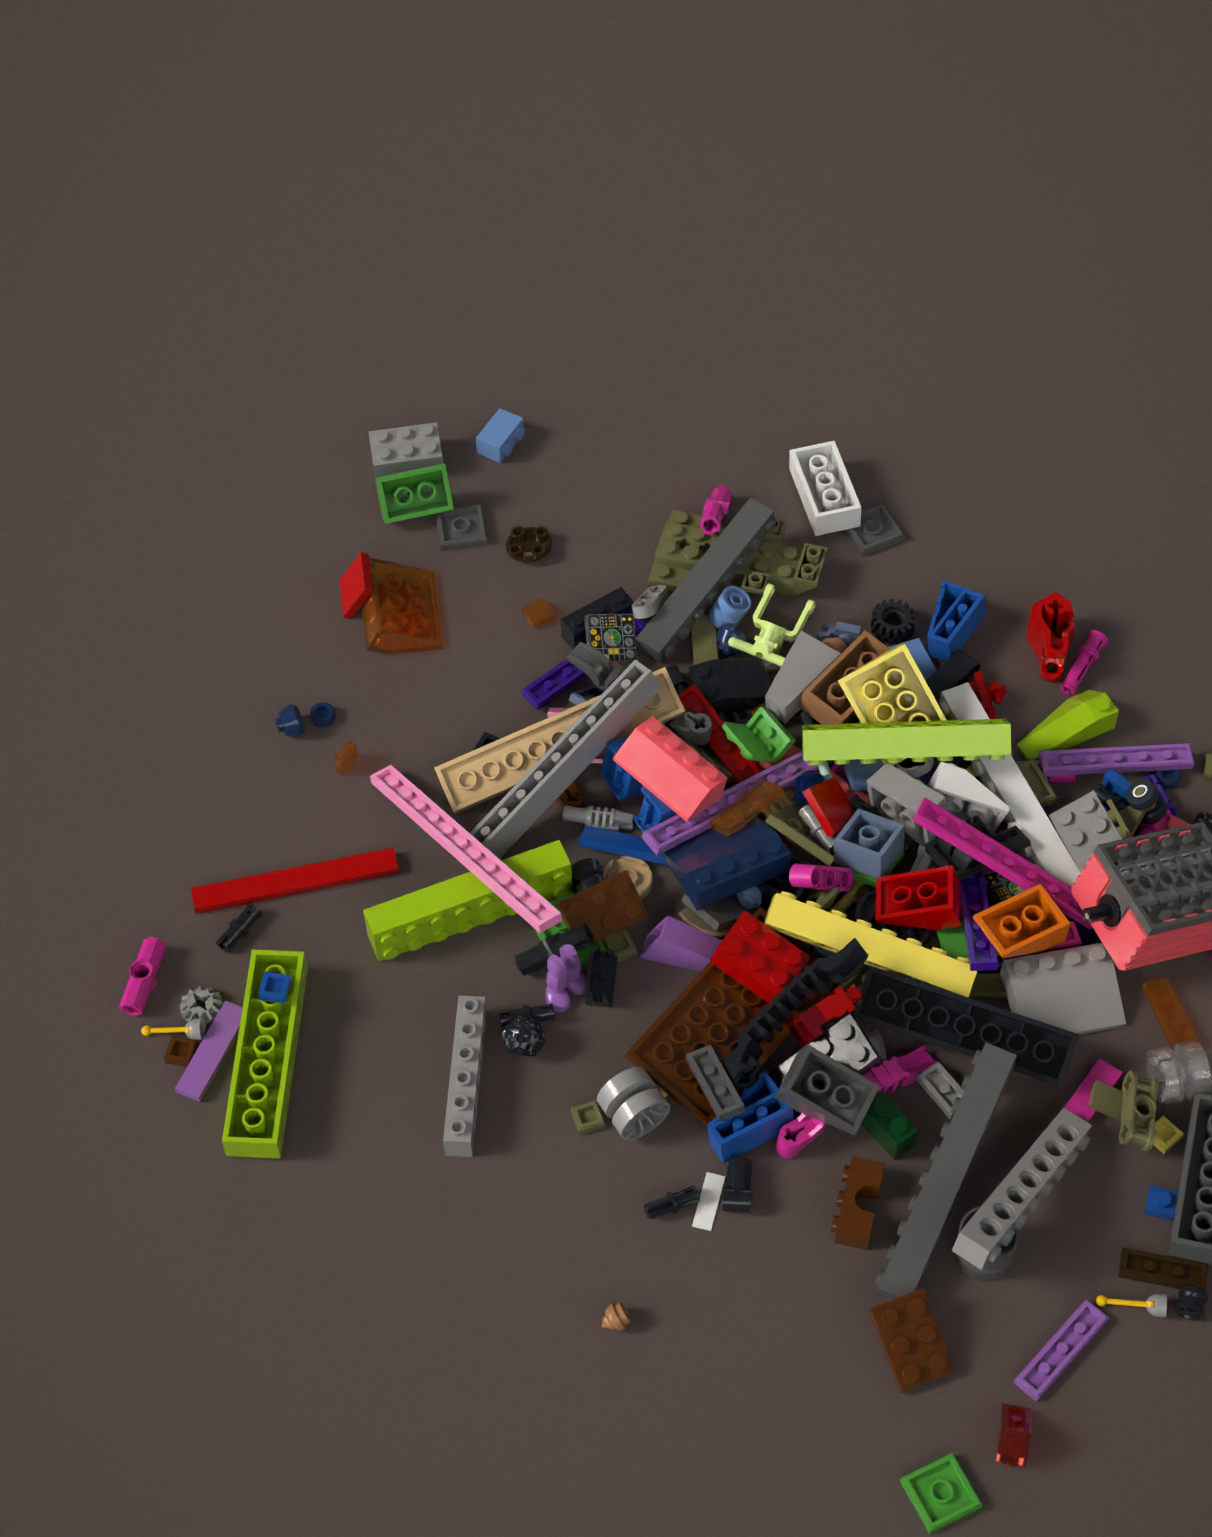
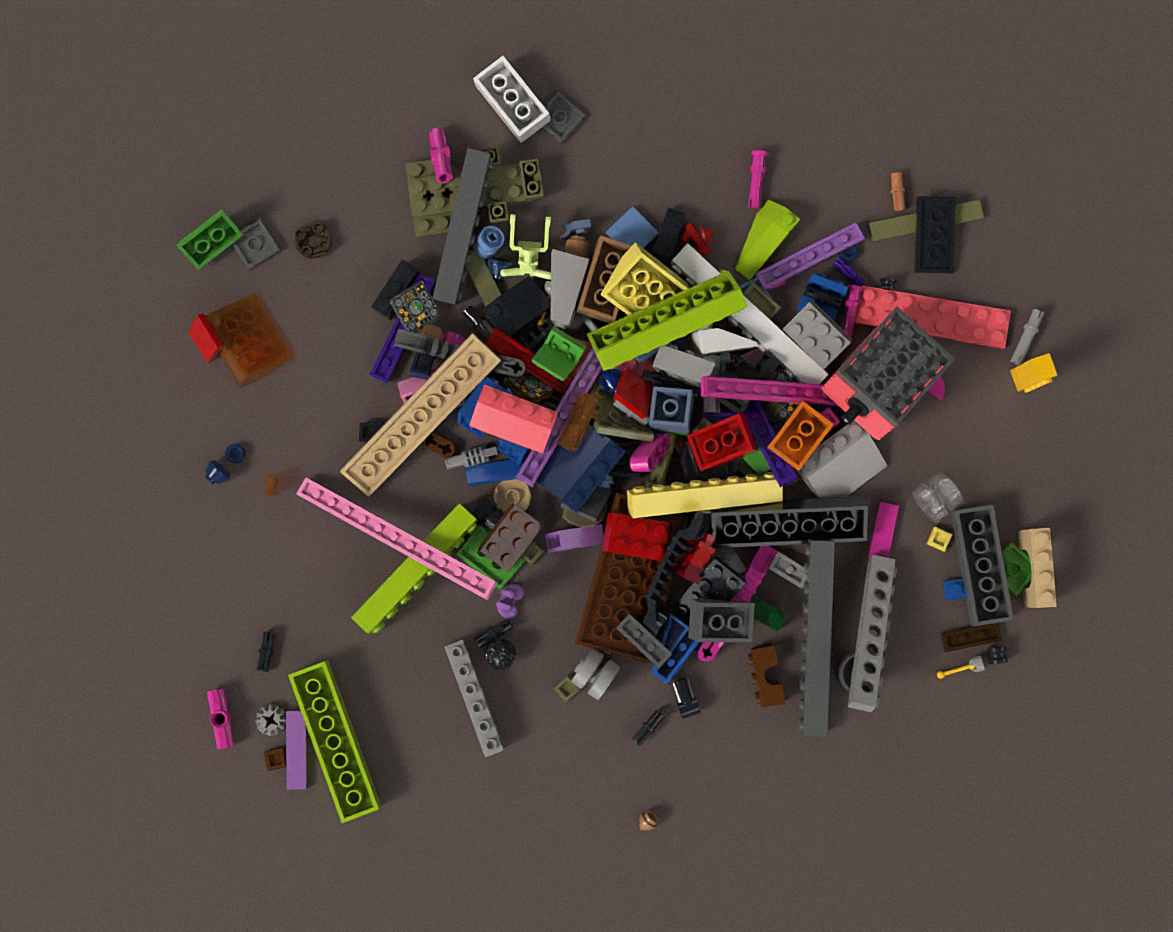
camera: 25 degrees left, 30 degrees up
(194, 1029) = (277, 742): hinge -> none
(275, 987) = (320, 701): blue plate -> none
(294, 880) = (284, 597): red tile -> none
(405, 448) = (180, 195): light grey brick -> none
(500, 435) = (244, 148): medium blue brick -> none
(537, 956) = (500, 574): black piece -> none
(538, 613) = (348, 299): clear orange tile -> none
(567, 759) = (434, 439): light grey brick -> none
(601, 977) = (530, 585): black hinge -> none
(650, 601) = (432, 266): light grey beam -> none
(709, 1201) = (669, 712): white sticker -> none
(893, 632) = (608, 188): black tyre -> none
(911, 1340) = (836, 758): reddish brown plate -> none
(941, 1493) = (889, 845): bright green tile -> none
(954, 620) = (653, 182): blue wedge -> none
(1013, 1435) = (920, 790): clear red slope -> none
(1050, 646) = (723, 174): red piece -> none
(1061, 1350) = (927, 719): medium lavender tile -> none
(1106, 1100) = (903, 532): olive tile -> none
(1138, 1111) = (925, 545): olive piece -> none
(1144, 807) = (845, 298): plate -> none
(1168, 1011) = (914, 447): clear orange tile -> none

